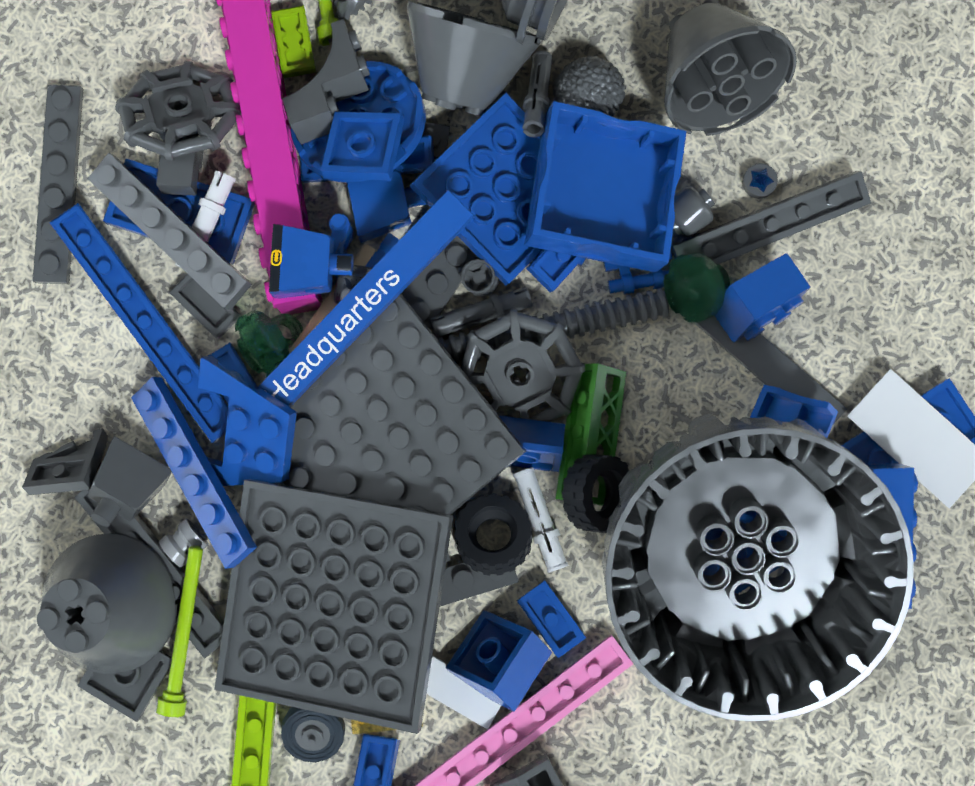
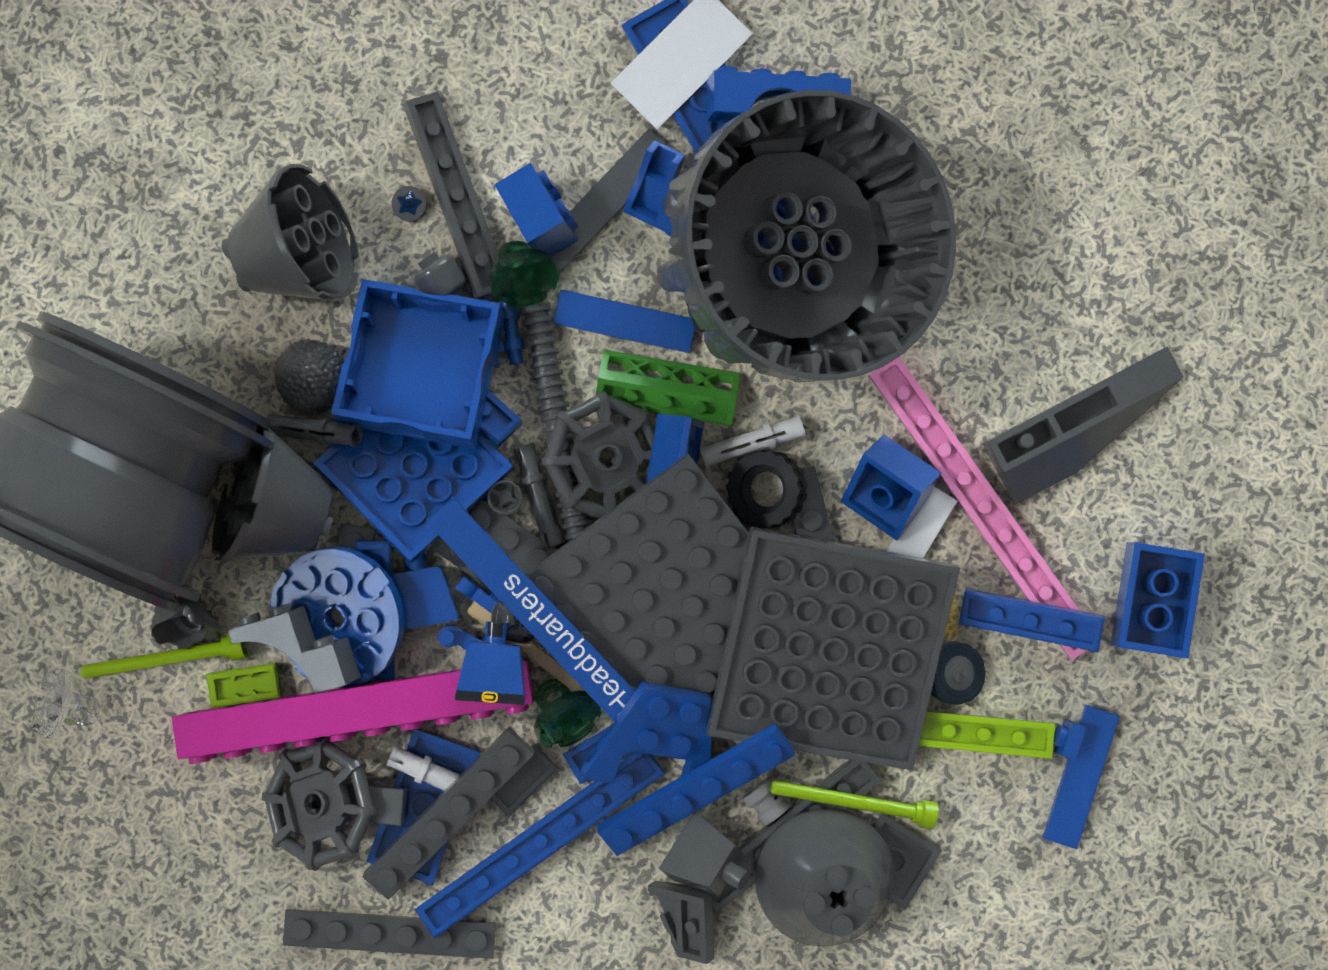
camera: 90 degrees left, 5 degrees up
(362, 146) = (370, 610): blue plate -> none
(551, 619) = (851, 434): blue plate -> none
(579, 490) = (725, 401): black tyre -> none
(654, 390) = (624, 321): none -> blue tile

